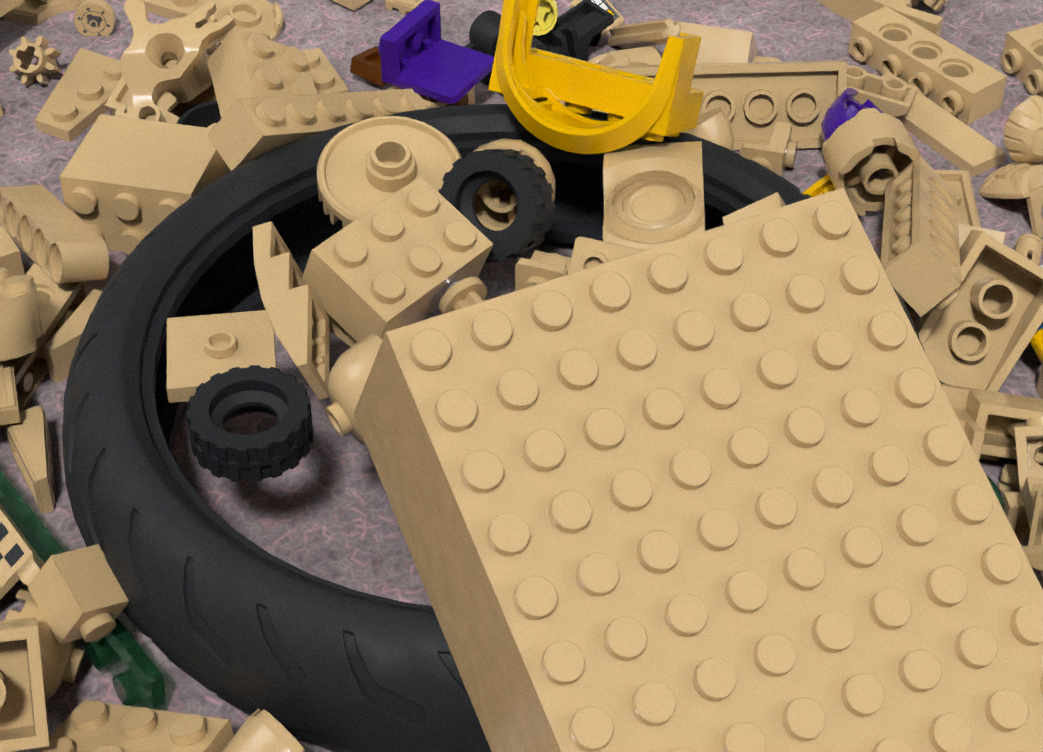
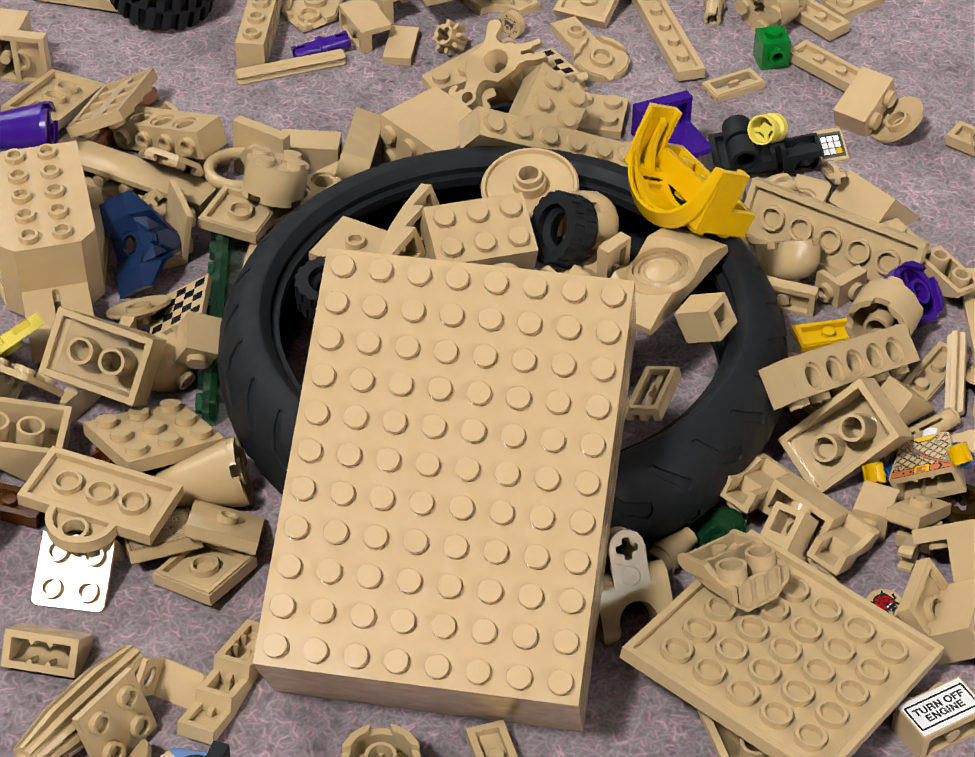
camera: 35 degrees right, 0 degrees up
(576, 219) = (610, 256): none -> tan bracket
(985, 194) = (956, 371): none -> tan axle

